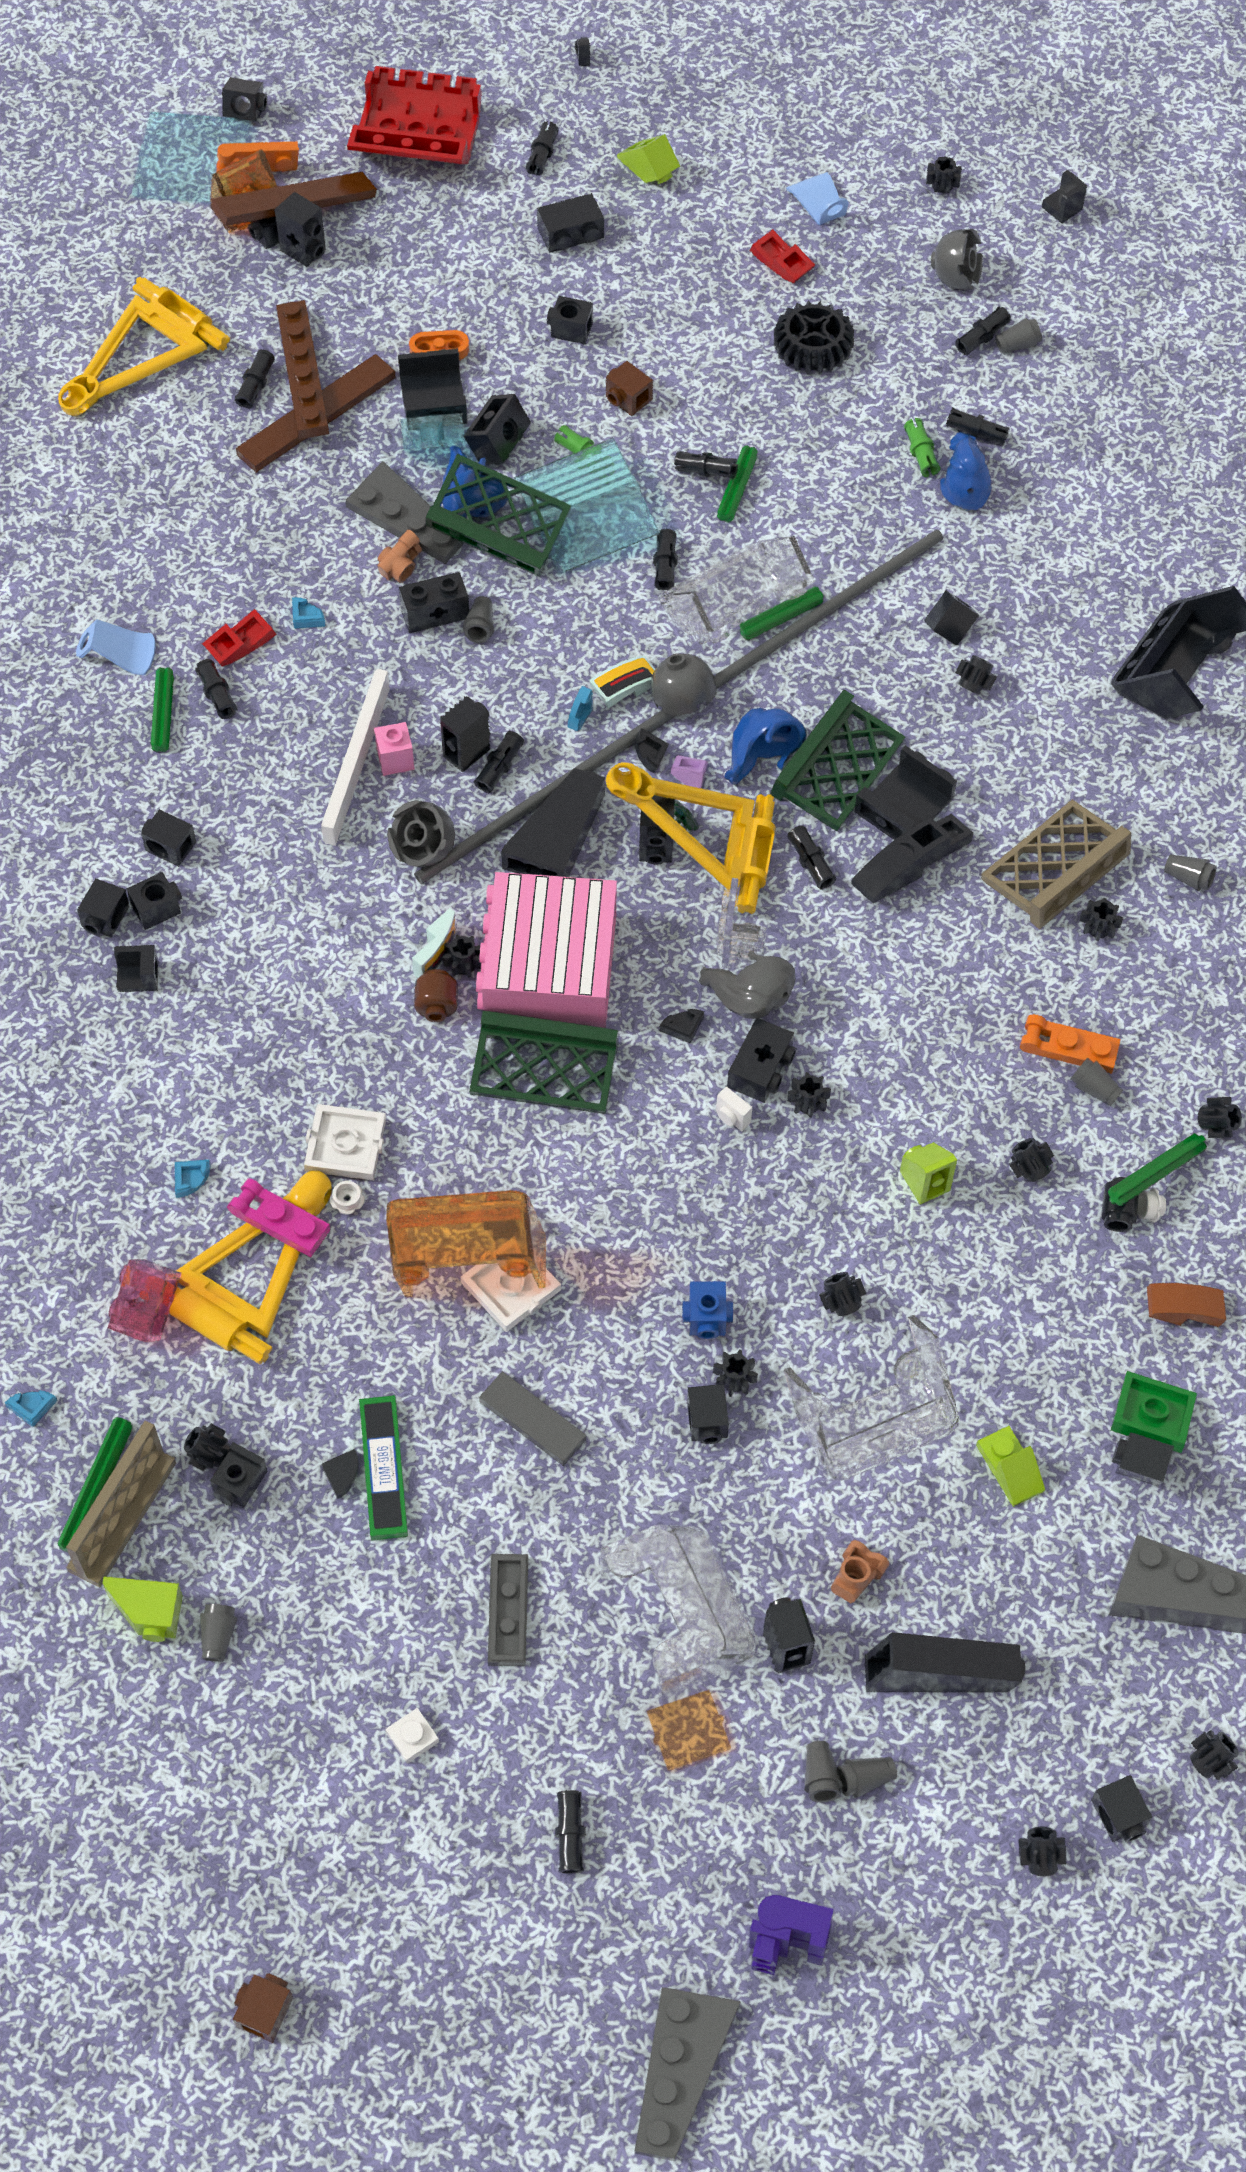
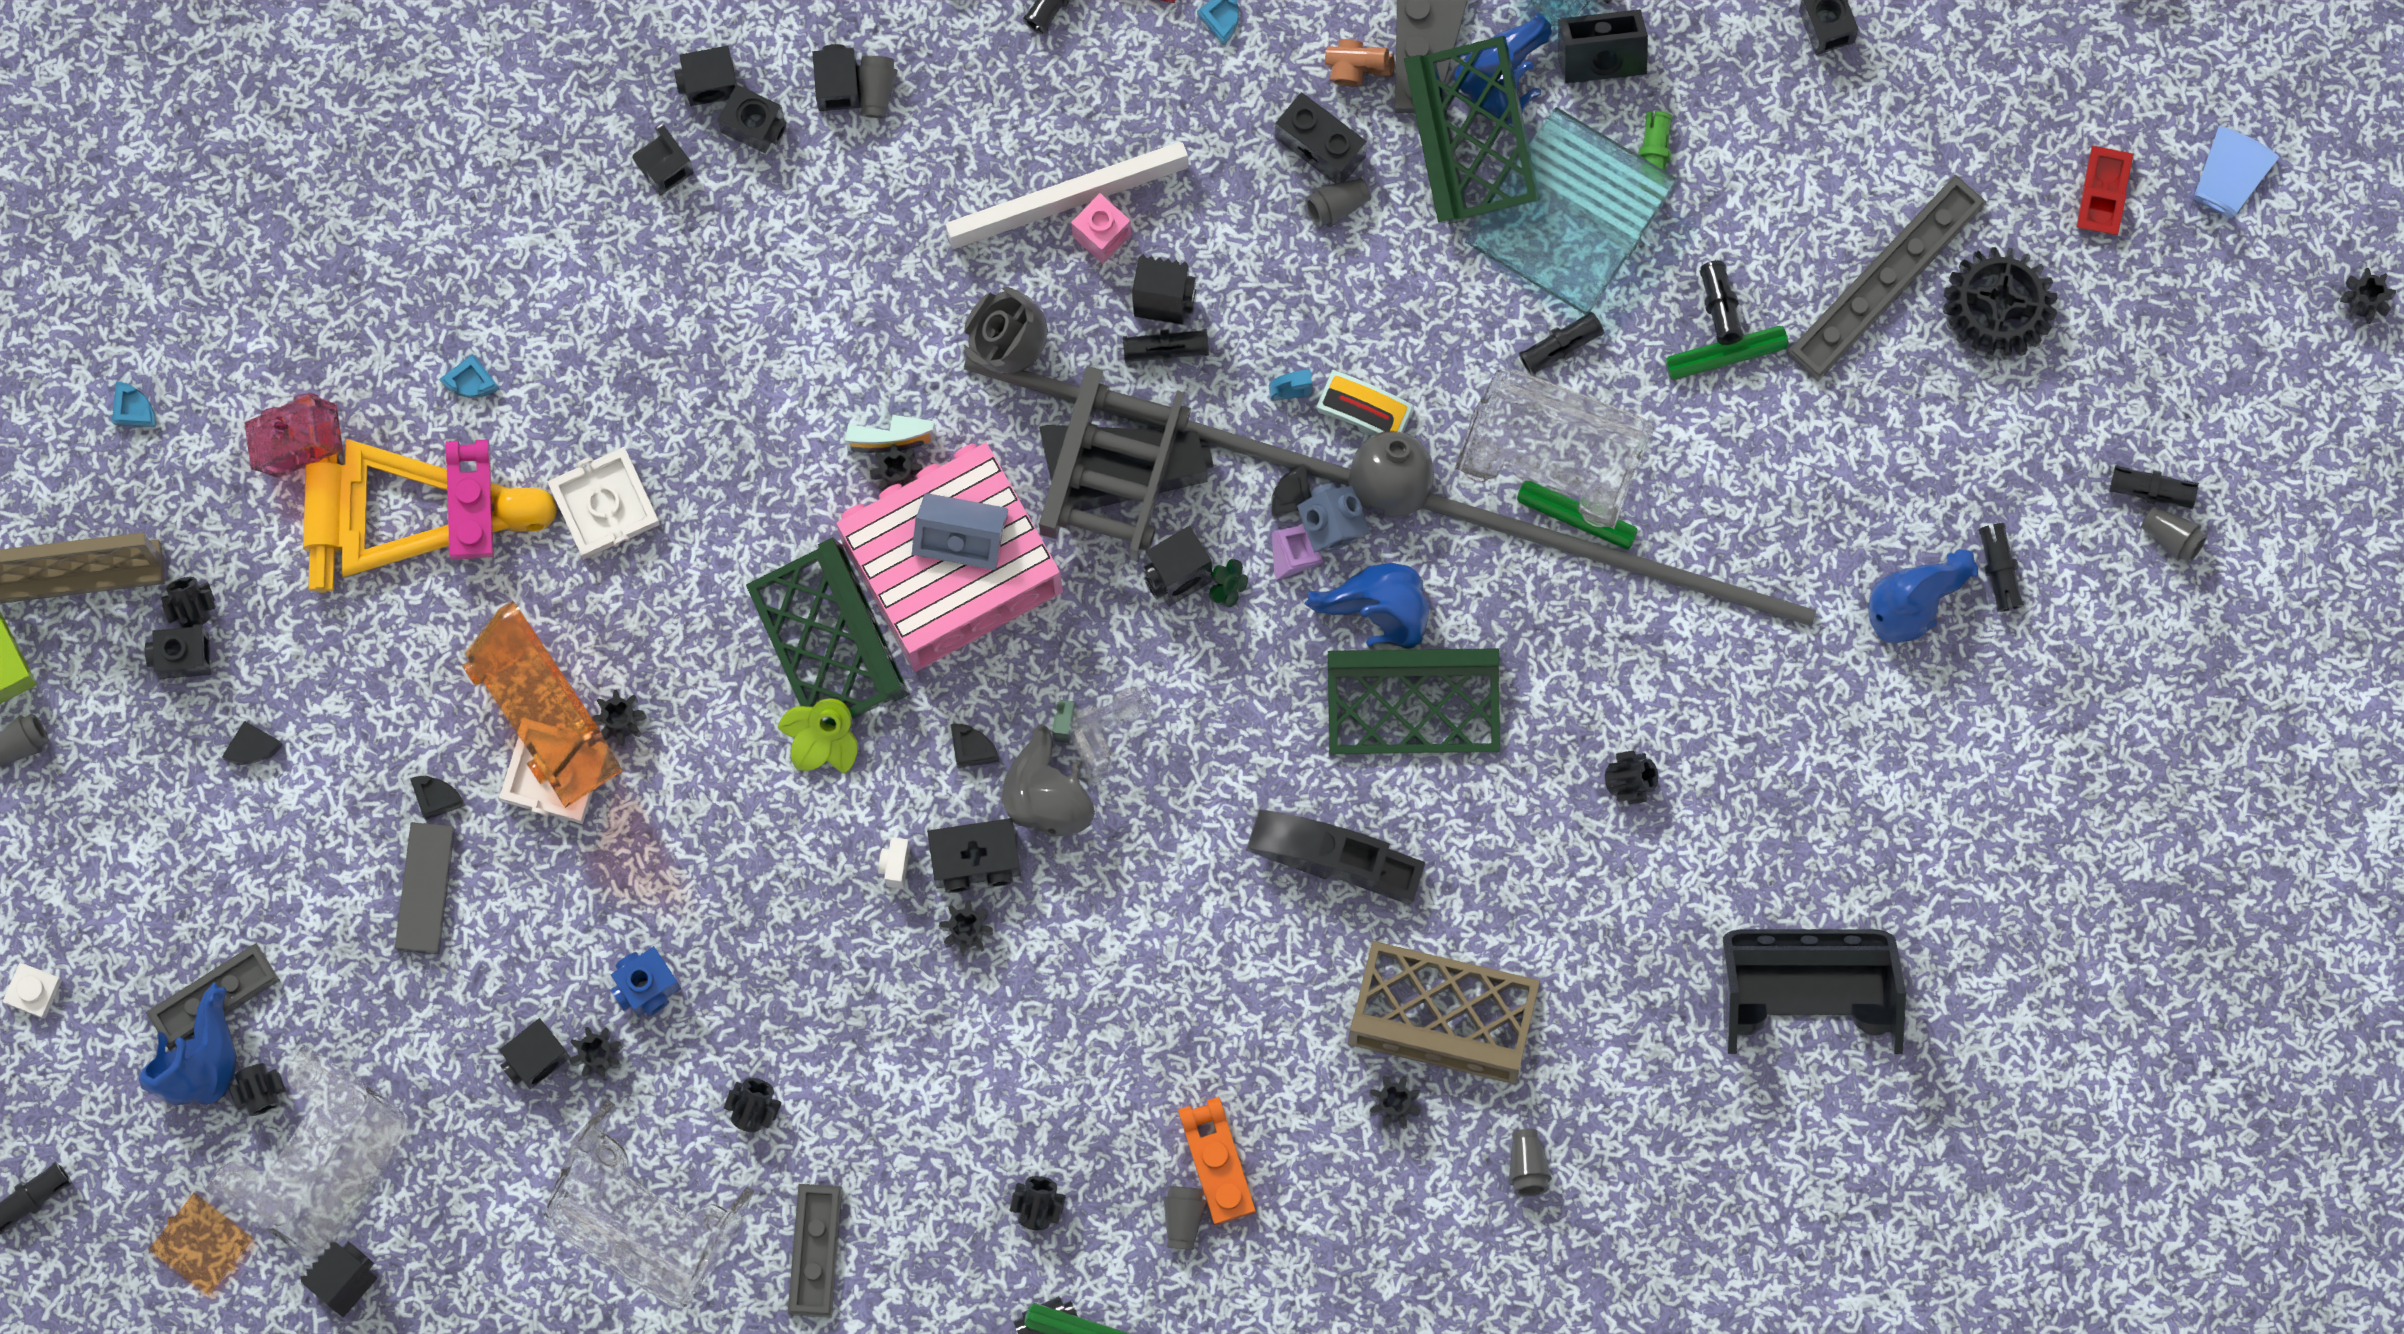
camera: 60 degrees right, 15 degrees up
(98, 1475) = (96, 523): green axle -> none
(191, 813) = (875, 84): none -> dark grey cone
(344, 1189) = (542, 537): white plate -> none
(383, 1468) = (281, 780): tile -> none
(436, 995) = (831, 476): reddish brown head -> none
(470, 1373) = (435, 796): none -> black tile
(548, 915) = (959, 531): none -> sand blue panel
(551, 844) = (1084, 434): none -> dark grey fence
(557, 1643) = (198, 1067): none -> blue piece
(603, 1614) = (257, 1089): none -> black gear
(611, 1108) = (817, 741): none -> lime plate
(629, 388) = (1772, 146): reddish brown brick -> none
(691, 742) = (1333, 517): none -> sand blue brick
(707, 957) = (1061, 721): none -> sand green tile
(749, 837) = (1229, 673): yellow piece -> none
(752, 385) = (1886, 278): none -> dark grey tile
(811, 857) = (1269, 748): black pin -> none
(858, 1571) = (470, 1304): nougat plate -> none
(906, 795) = (1416, 802): black panel -> none
(922, 447) = (1926, 523): bright green pin -> none
(928, 1171) = (950, 1102): lime slope -> none
(951, 618) = (1697, 703): black panel -> none
(958, 254) = (2236, 395): dark grey cylinder -> none
(970, 1320) = (815, 1250): none -> dark grey tile

